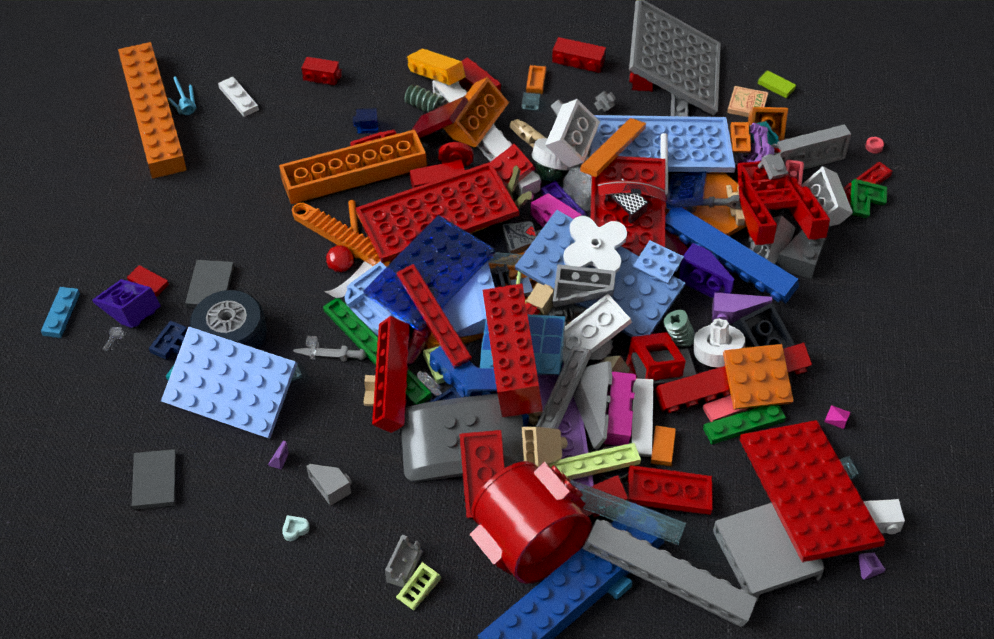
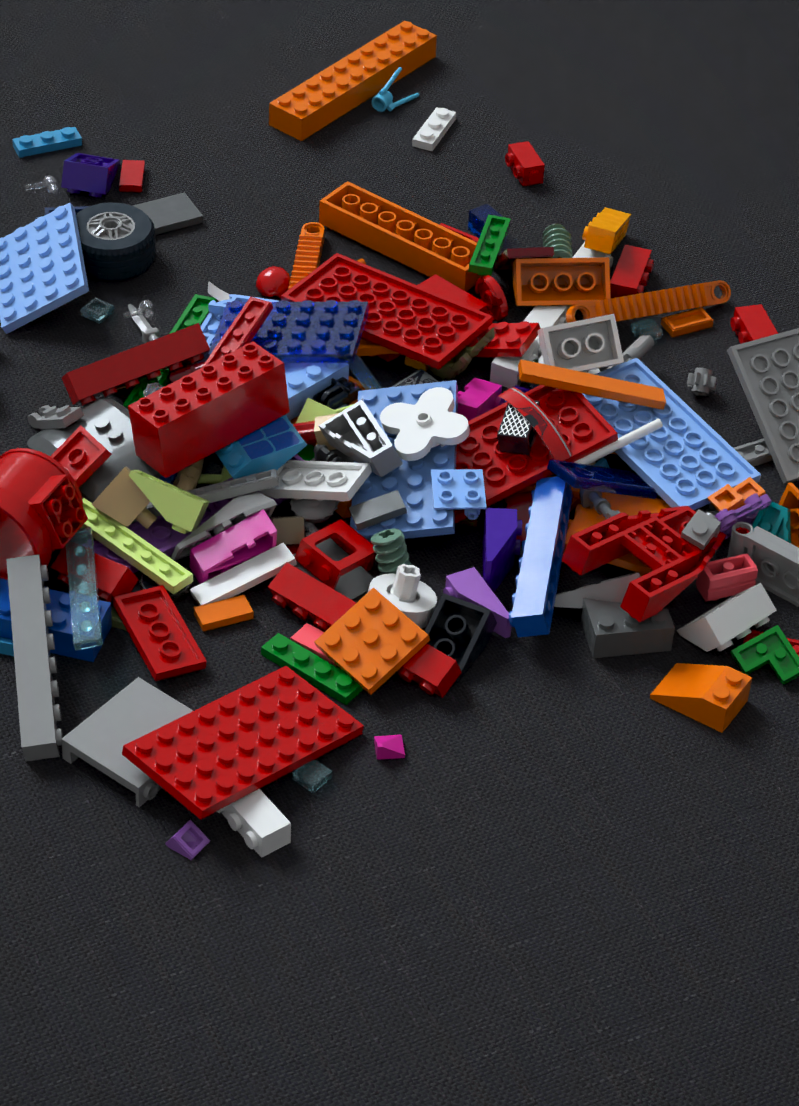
camera: 55 degrees right, 10 degrees down
(407, 448) = (54, 417): none -> light grey hinge
(416, 127) = (489, 245): none -> green plate
(519, 87) = (653, 302): none -> orange gear
(573, 415) = (173, 503): none -> yellowish green slope
(642, 313) = (377, 510): none -> tile
(878, 242) = (704, 693): none -> orange slope

